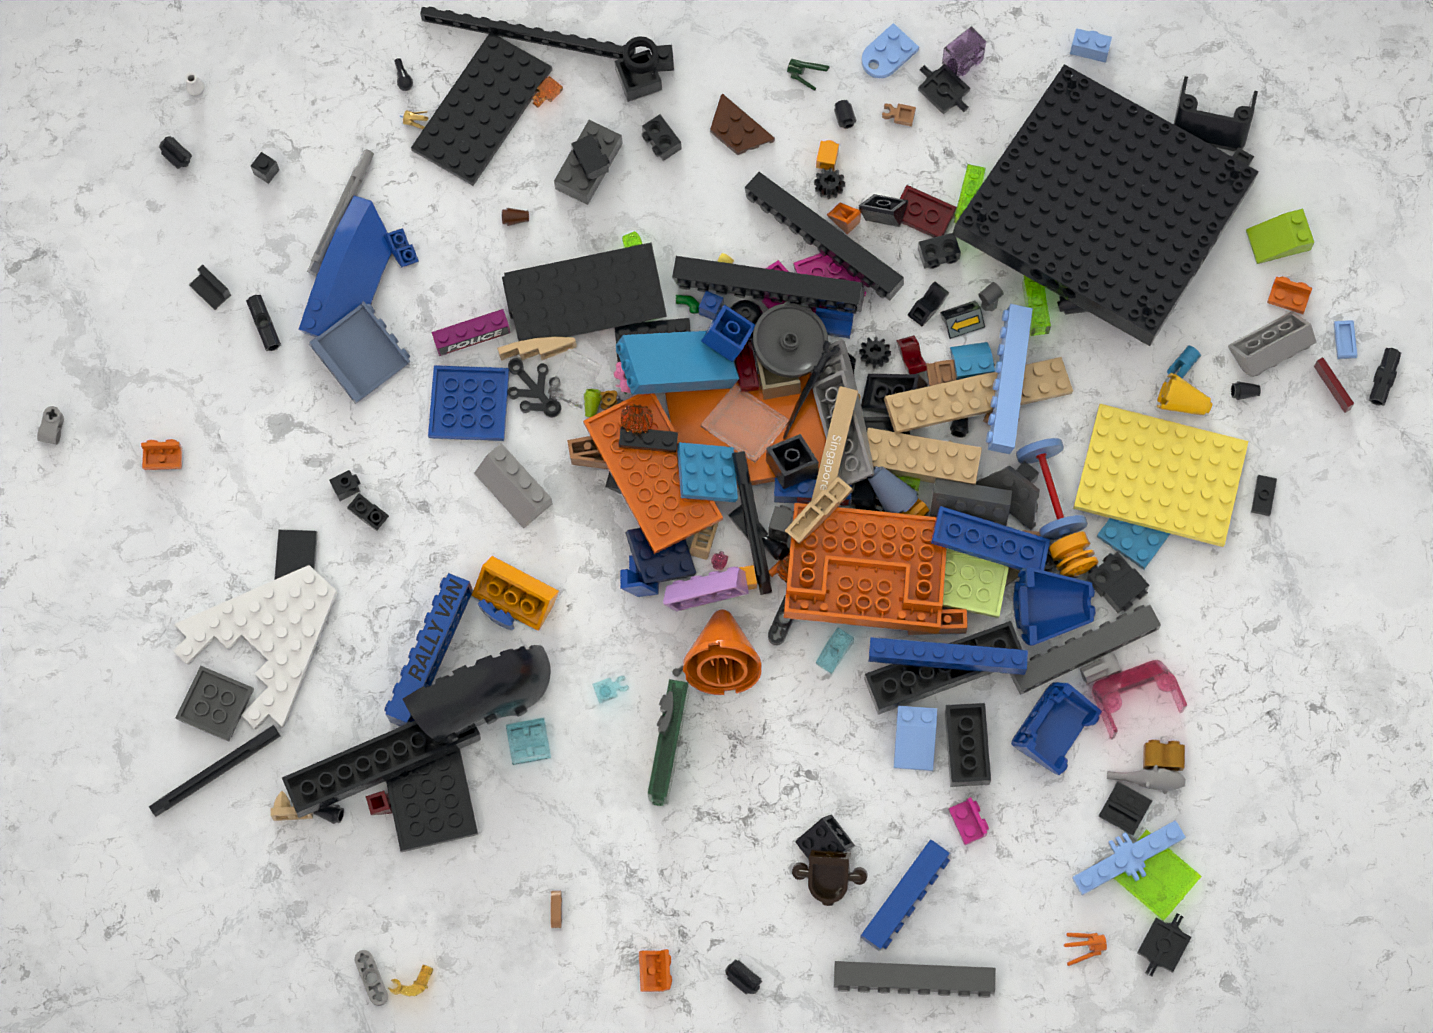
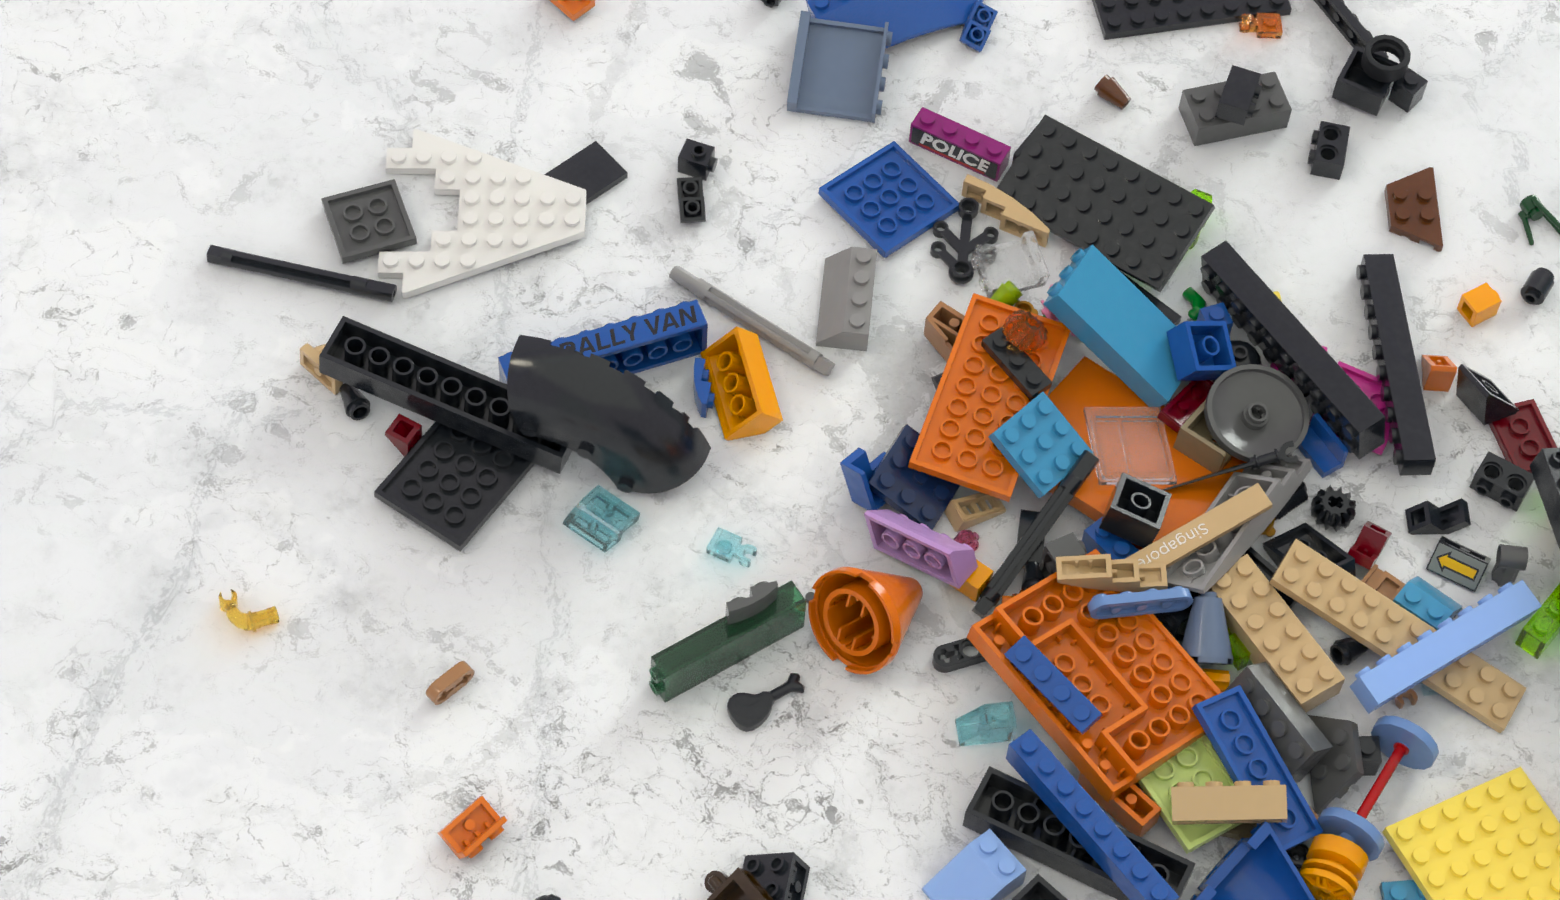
camera: 40 degrees right, 15 degrees down
(370, 962) = (217, 561): light grey beam -> none
(477, 549) = (752, 320): none -> light grey piece
(715, 763) = (752, 710): none -> black piece
(829, 176) = (1454, 328): black gear -> none
(852, 505) = (1139, 603): none -> medium blue plate
(856, 602) = (1053, 685): none -> blue plate
(999, 575) = (1229, 803): none -> tan brick

